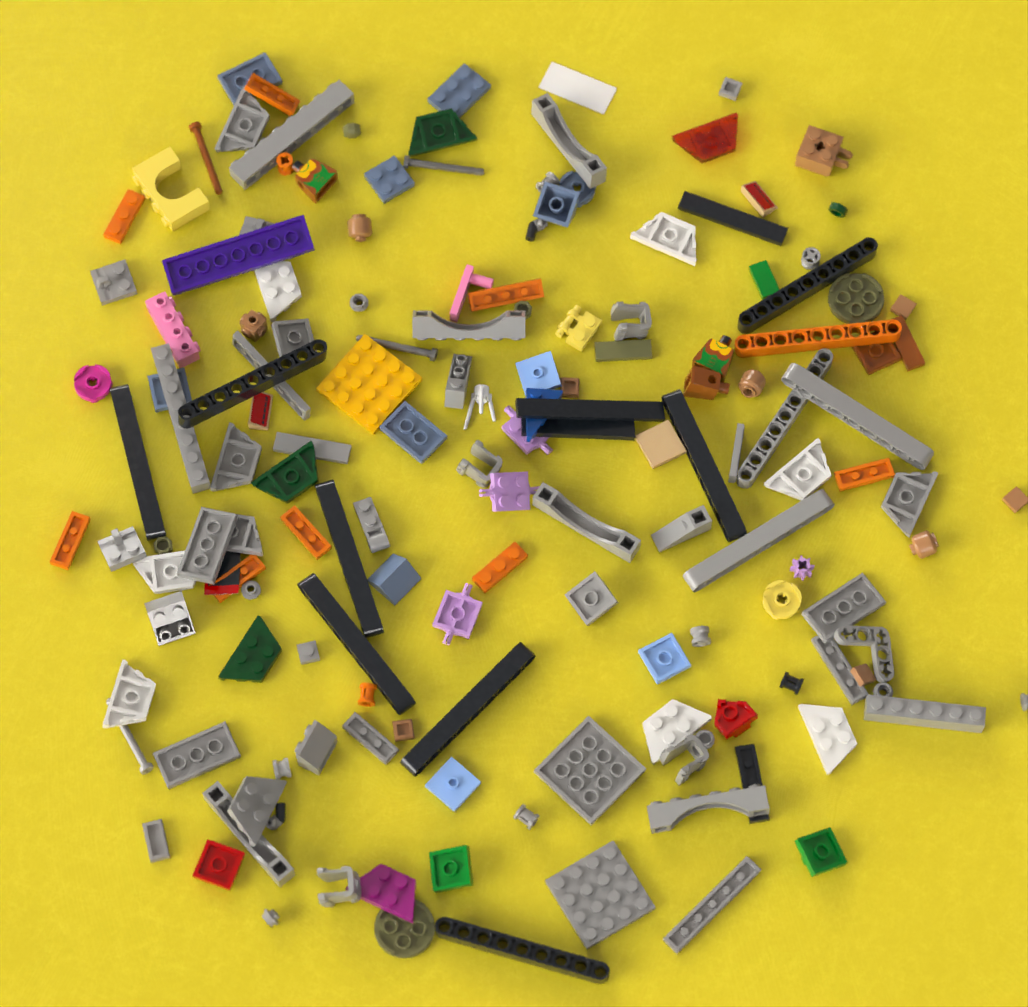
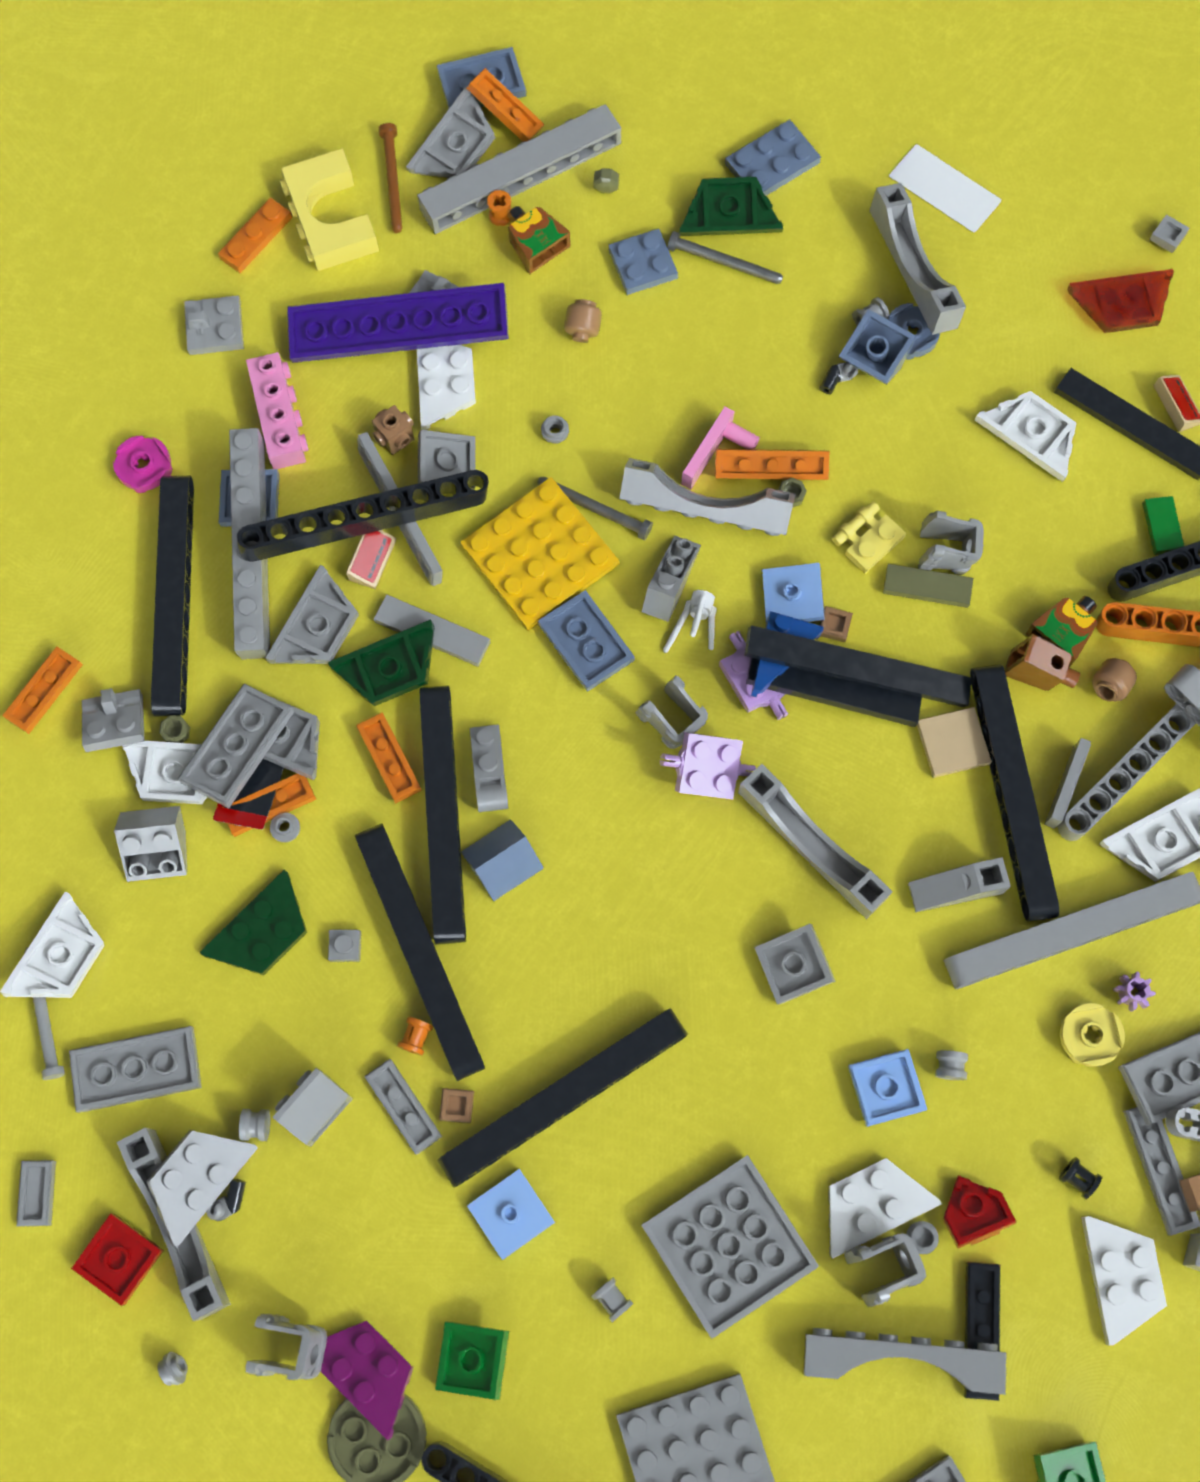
camera: 15 degrees right, 5 degrees up
(457, 614) = (584, 939): lavender plate -> none
(499, 567) = (666, 879): orange plate -> none

